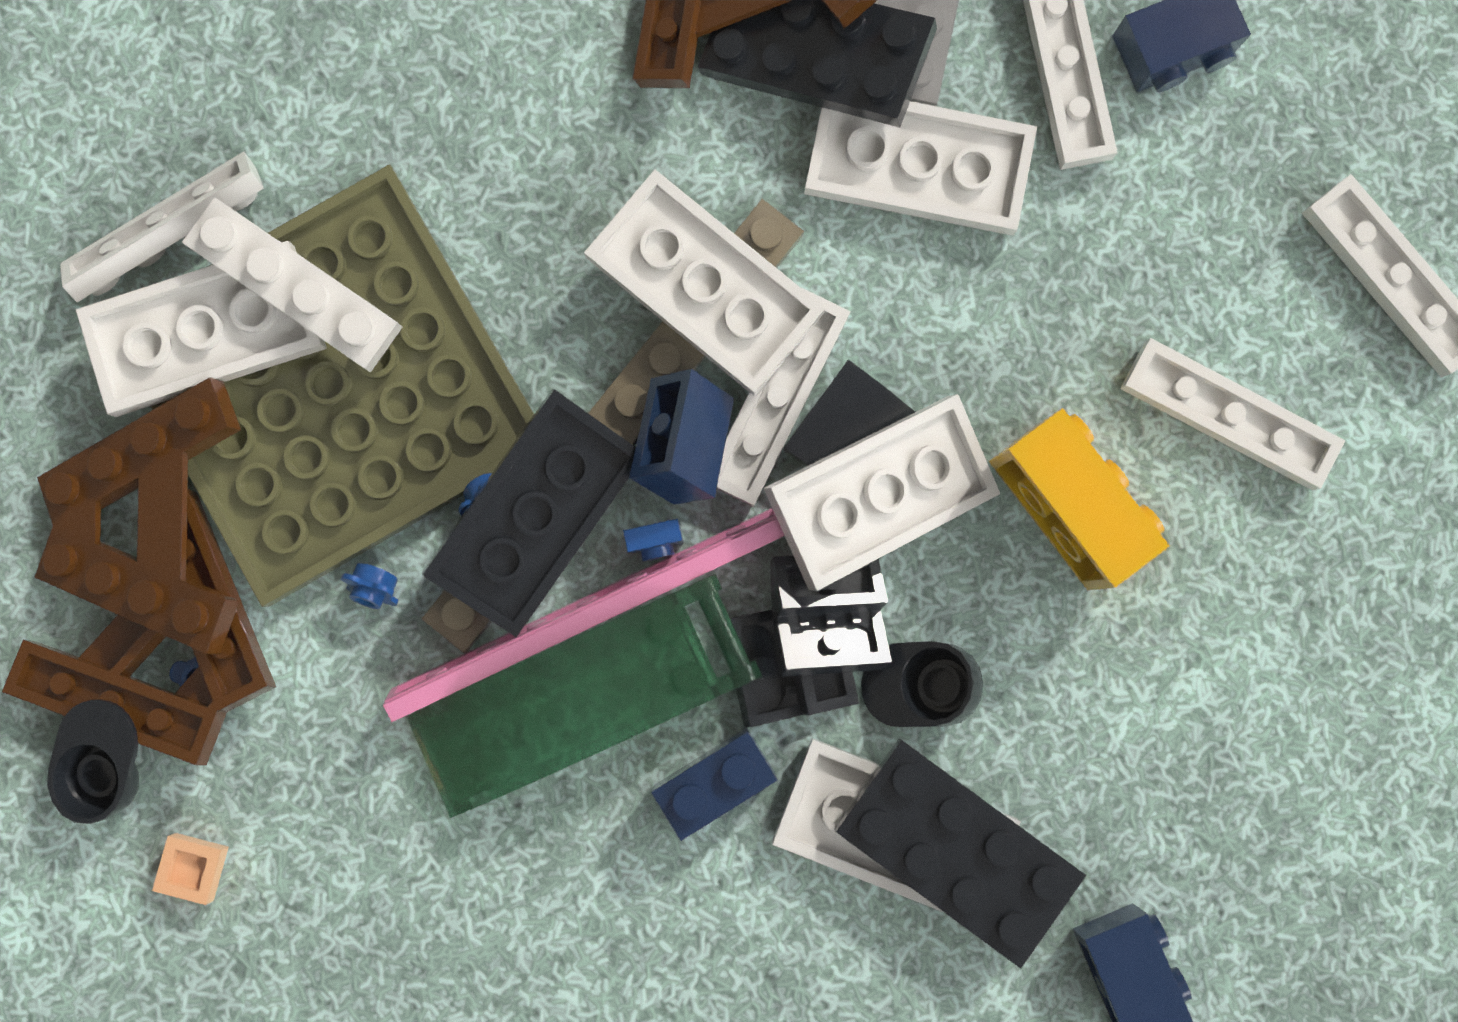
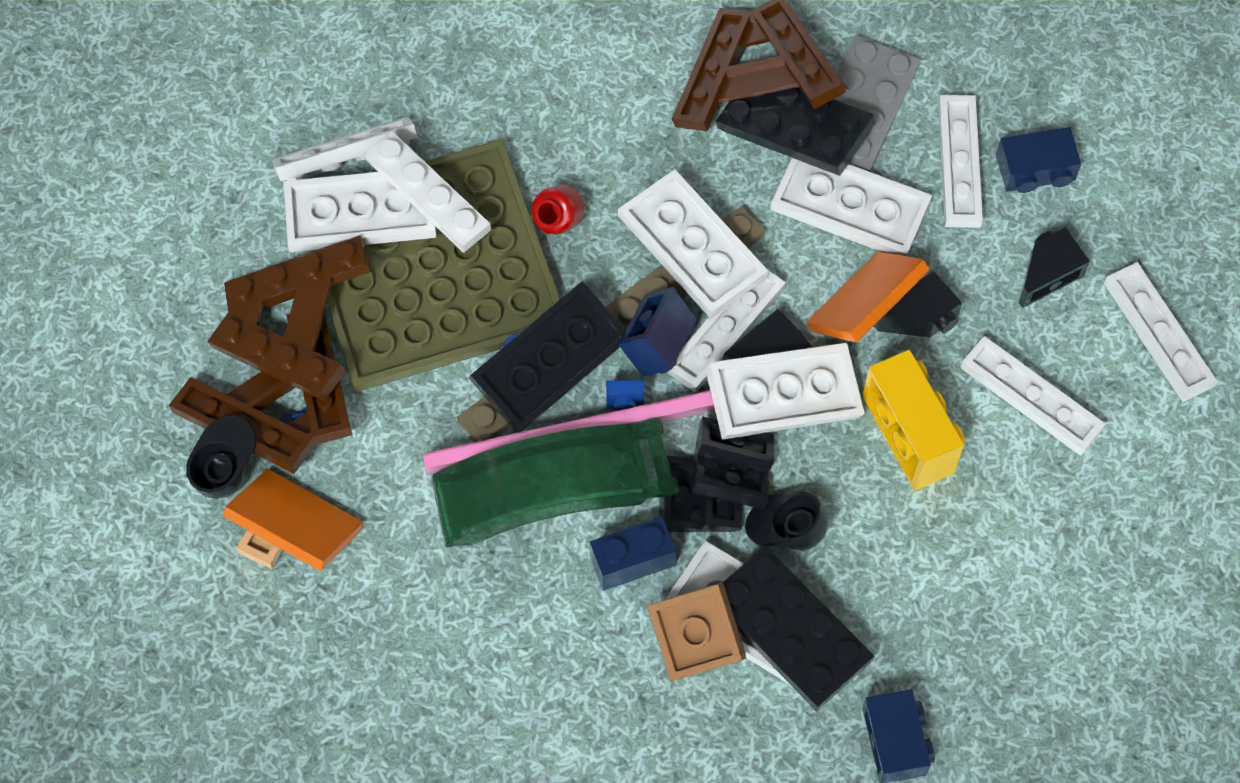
camera: 10 degrees right, 20 degrees down
(221, 833) = (293, 519): none -> orange tile
(371, 586) = (428, 389): blue plate -> none
(495, 264) = (557, 209): none -> red head
(830, 889) = (696, 632): none -> medium nougat plate
(975, 313) = (867, 296): none -> orange tile
(1055, 313) = (923, 310): none -> black slope
(1226, 203) = (1052, 265): none -> black slope

